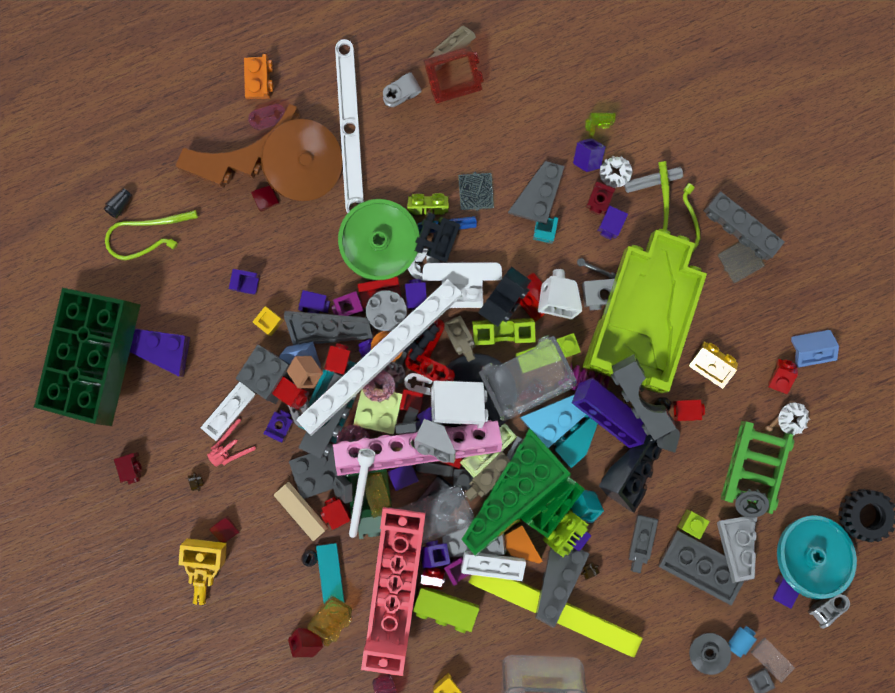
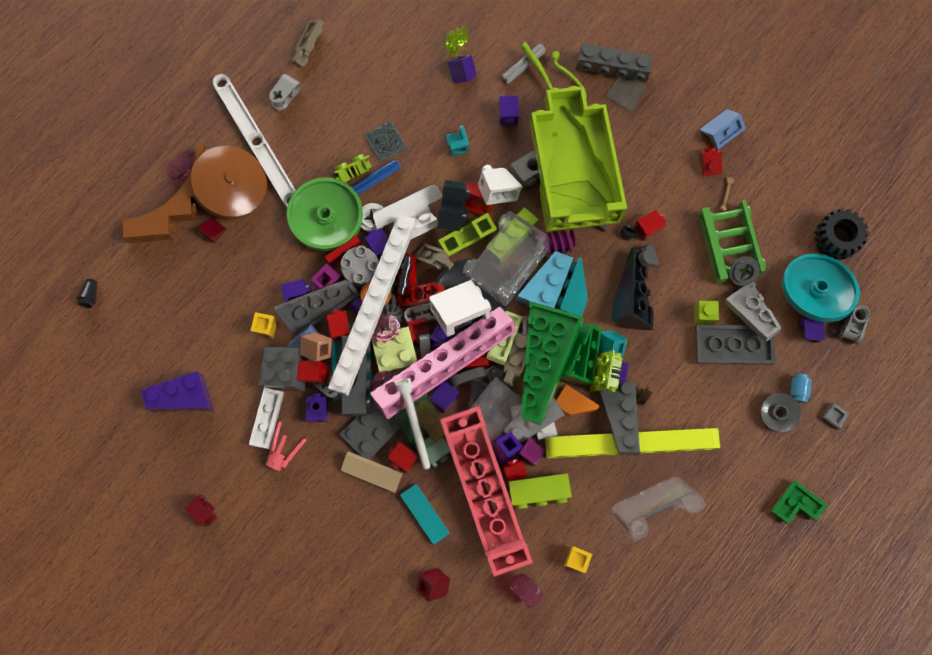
camera: 25 degrees left, 10 degrees down
(87, 356) = (119, 429): dark green brick -> none
(168, 220) = (149, 305): lime piece -> none
(195, 481) = (267, 493): dark brown plate -> none
(202, 563) = (305, 560): yellow brick -> none
(224, 530) = (312, 523): dark red slope -> none
(244, 281) = (227, 304): dark purple panel -> none
(257, 77) = (159, 138): orange bracket -> none
(314, 559) = (404, 509): black hinge -> none
(331, 620) = (445, 551): clear yellow bracket -> none
(343, 488) = (398, 431): dark grey plate -> none
(408, 427) = (427, 348): dark grey tile -> none
(434, 440) = (456, 345): light grey slope -> none
(442, 240) = (377, 187): black plate -> none
(459, 90) = (307, 70): clear red window -> none
(493, 566) = (560, 429): white plate -> none
(539, 195) = (438, 118): dark grey wing -> none
(581, 262) = (500, 154): dark grey hinge -> none
(599, 190) = (488, 90): dark red brick -> none
(609, 412) = (589, 254): dark purple brick -> none
(615, 180) = (493, 77): white gear -> none
(642, 541) = (672, 349): dark grey hinge -> none
(655, 417) = (589, 213): dark grey arch -> none
(714, 364) = (651, 180): bracket -> none
(772, 660) = (834, 392): clear tile -> none
(786, 416) = (731, 189): white gear -> none

